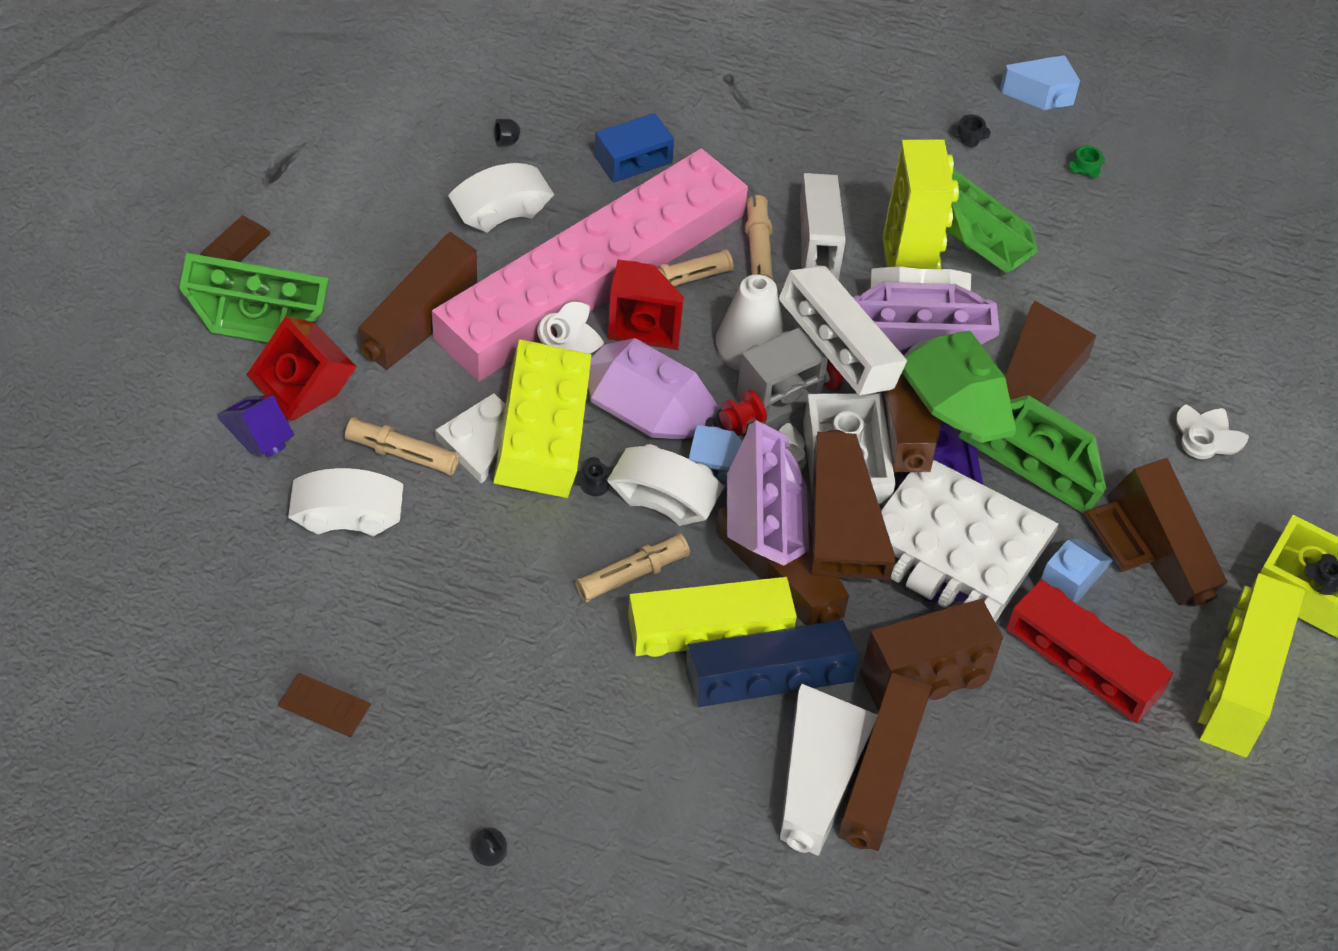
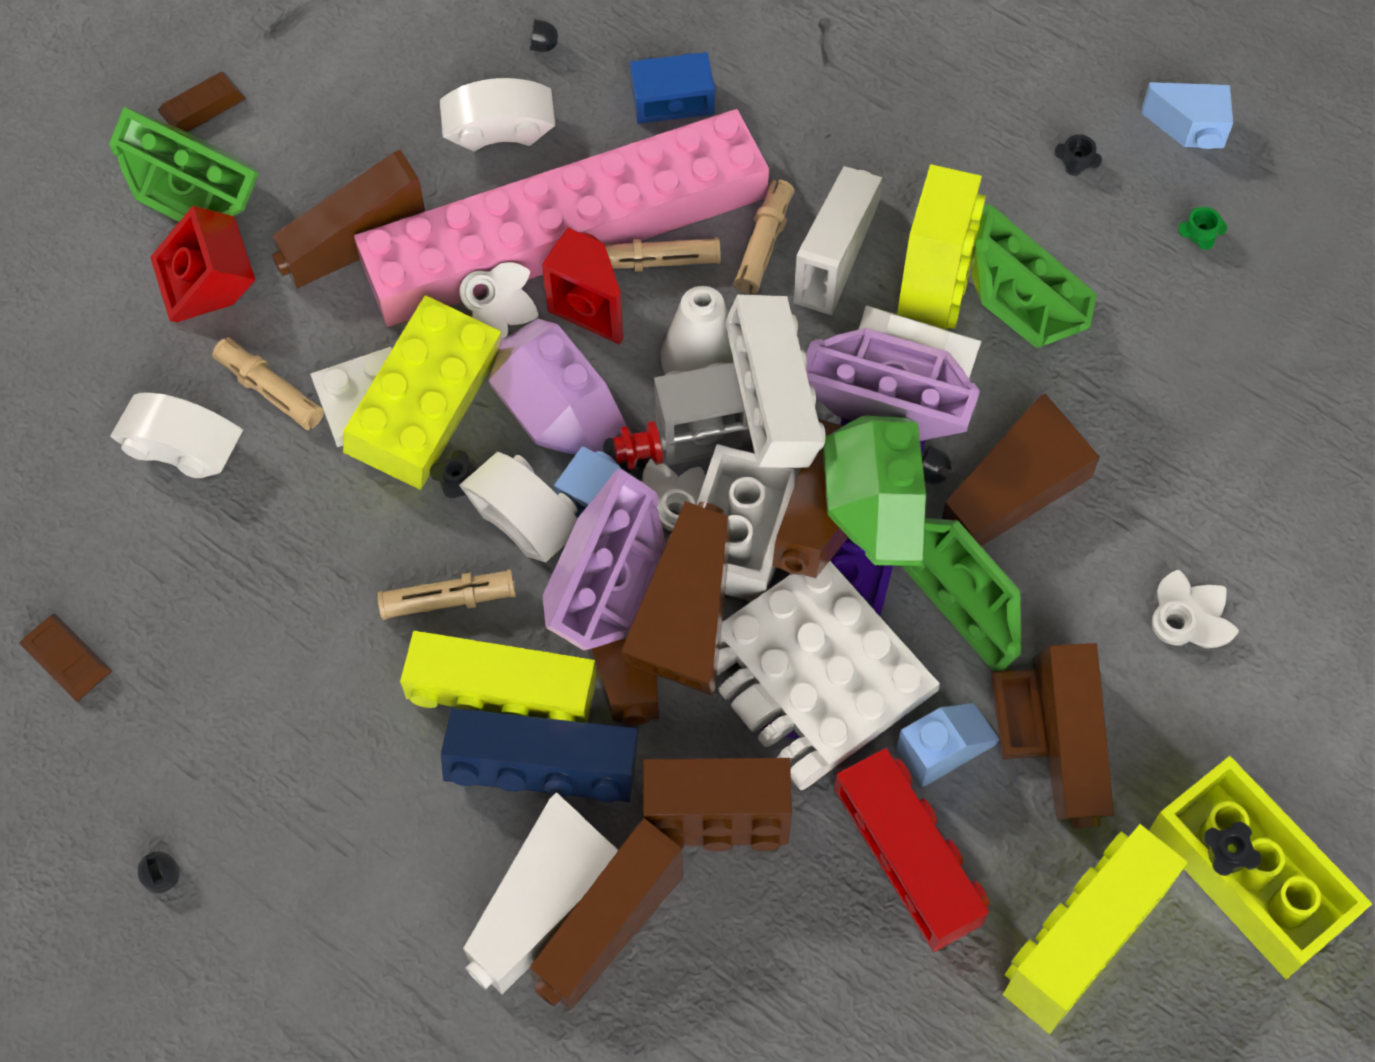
camera: 25 degrees right, 10 degrees up
(258, 424) = (128, 321): dark purple slope -> none

